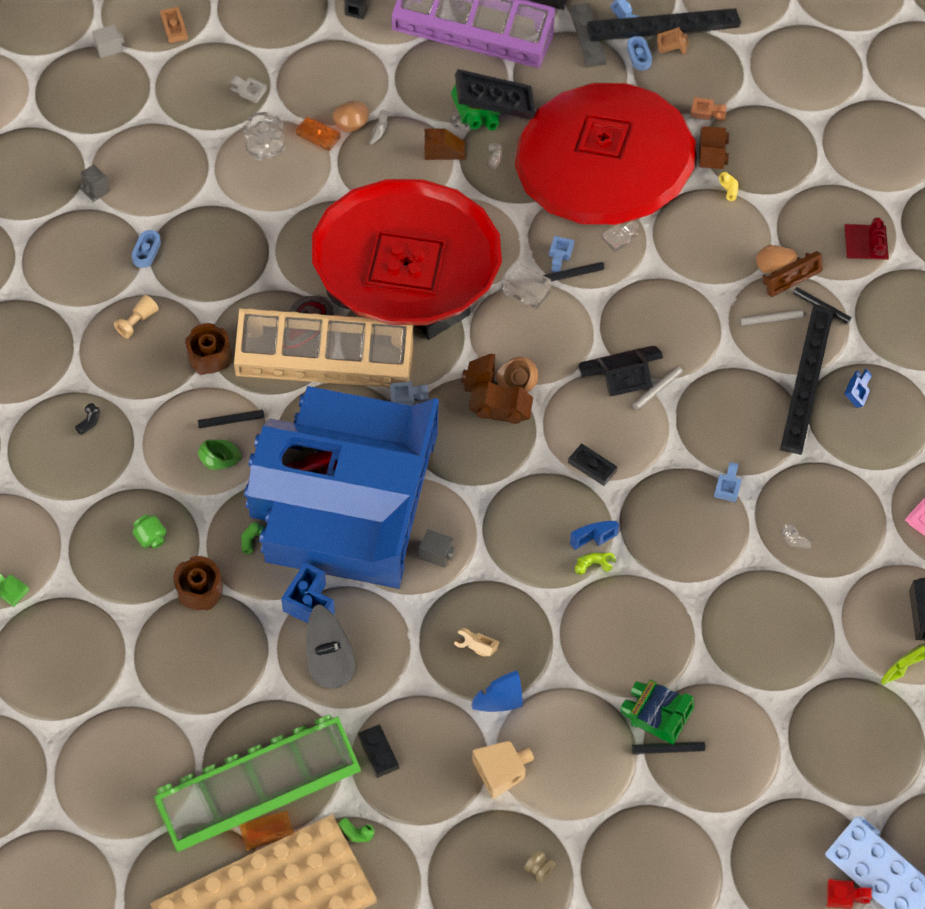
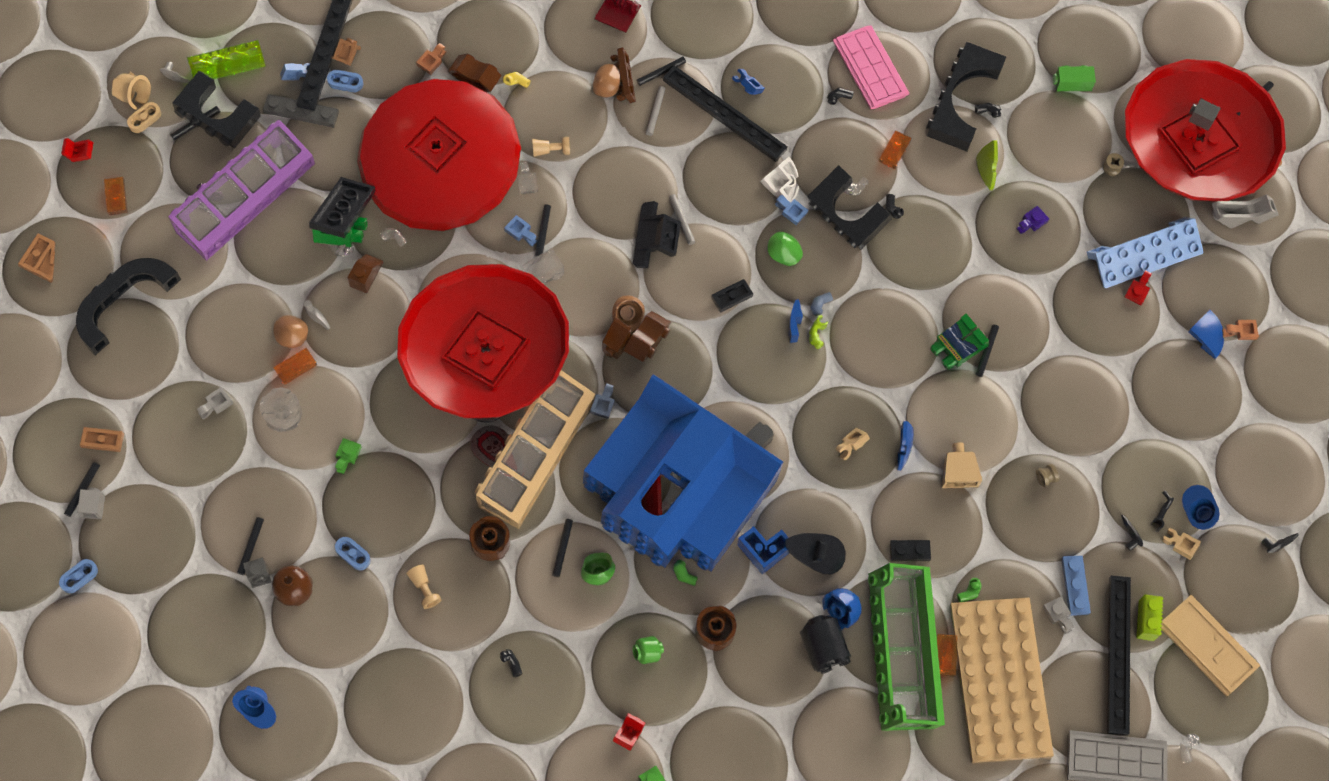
camera: 70 degrees left, 10 degrees up
(38, 61) = (78, 575): none -> medium blue plate
(52, 548) = (629, 732): none -> red bracket
(94, 215) = (292, 585): none -> reddish brown cylinder
(127, 170) = (250, 545): none -> black piece
(130, 31) = (83, 486): none -> black bar
(222, 694) = (825, 643): none -> black cylinder
(248, 206) = (347, 453): none -> bright green plate
(276, 700) = (843, 605): none -> blue cylinder
(632, 550) = (818, 302): none -> sand blue arm
(665, 235) = (543, 147): none -> tan piece
(678, 494) = (784, 249): none -> bright green hat
(757, 510) = (858, 231): none -> black arch
(760, 464) = (783, 180): none -> white brick
(792, 582) = (890, 207): none -> black arm
(868, 741) = (1033, 219): none -> dark purple plate
(869, 562) = (895, 149): none -> clear orange plate
(902, 478) = (838, 93): none -> black arm

